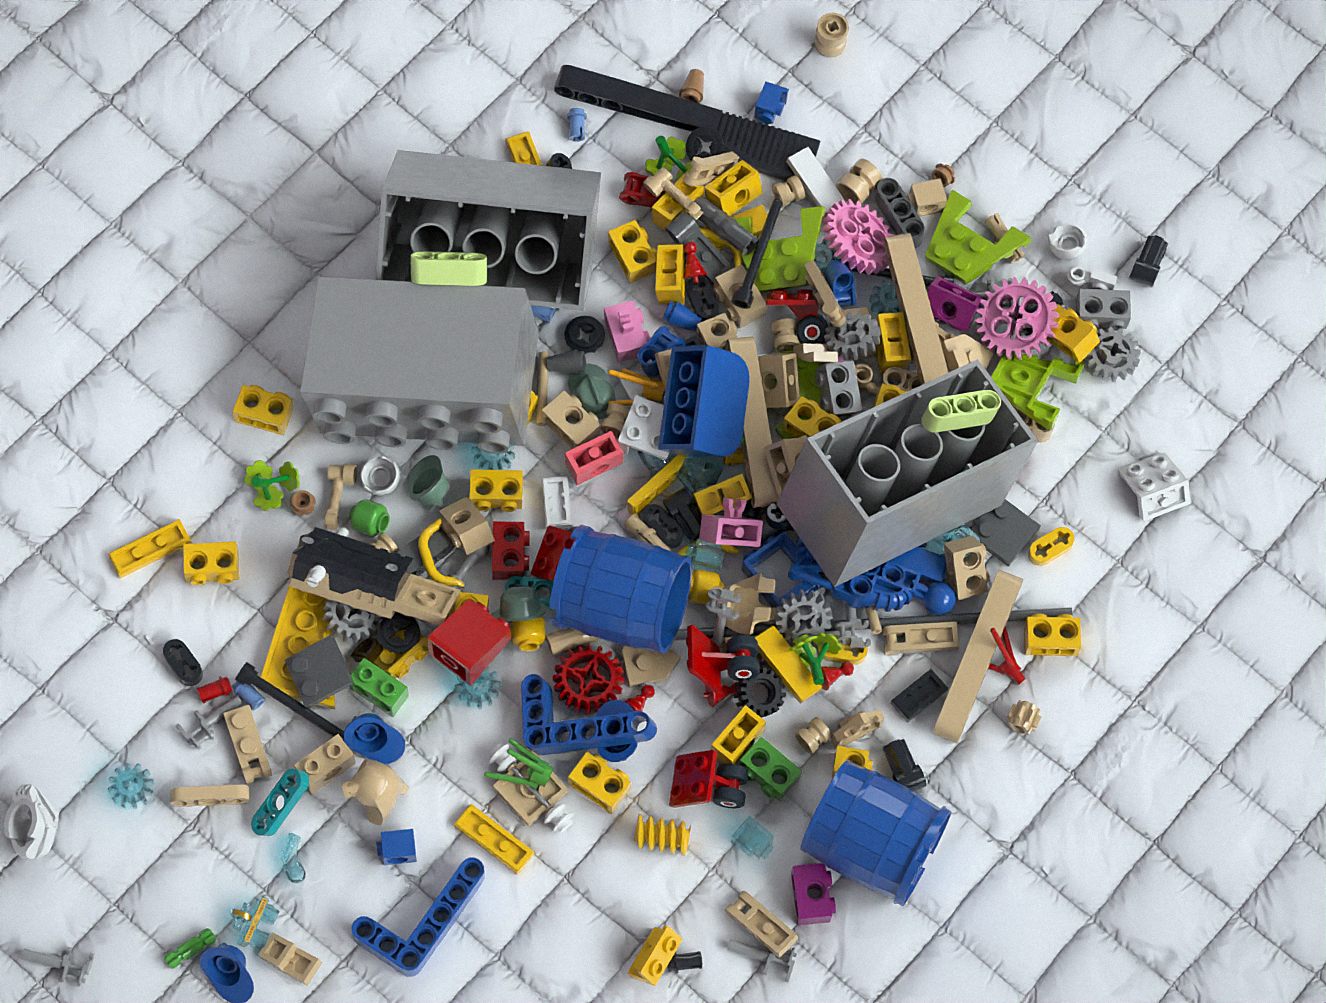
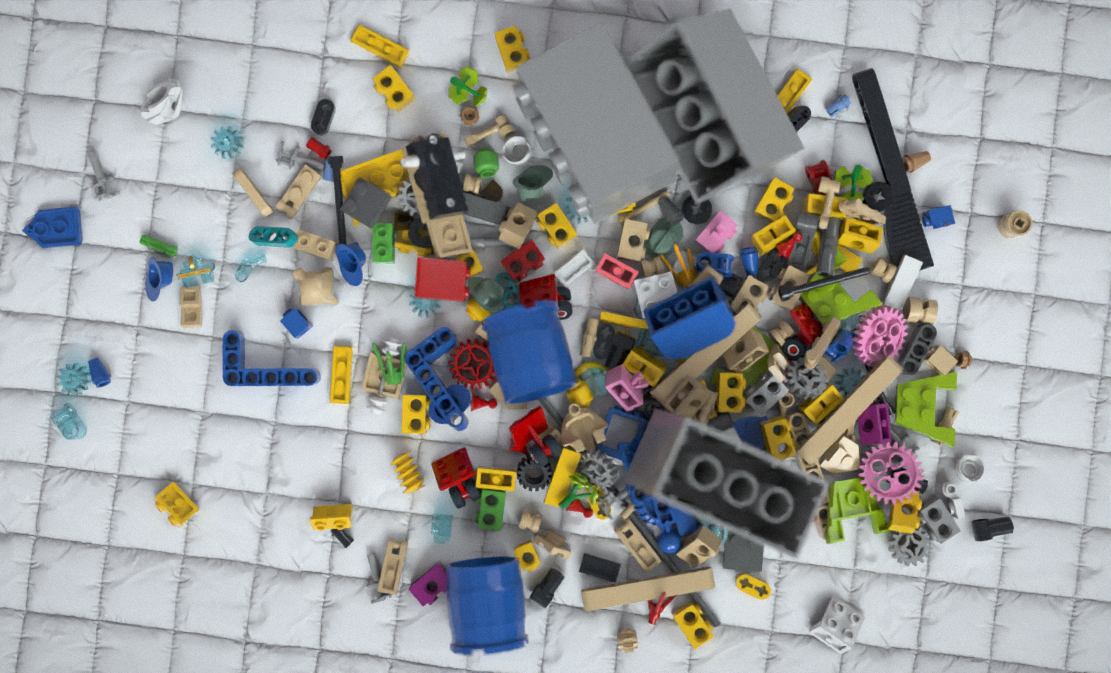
camera: 65 degrees right, 20 degrees up
(405, 533) = (492, 191): none -> dark brown tile
(428, 560) = (481, 215): yellow animal -> none
(449, 268) = (660, 101): yellowish green beam -> none
(721, 610) = (566, 418): light grey piece -> none
(961, 411) = (787, 506): yellowish green beam -> none

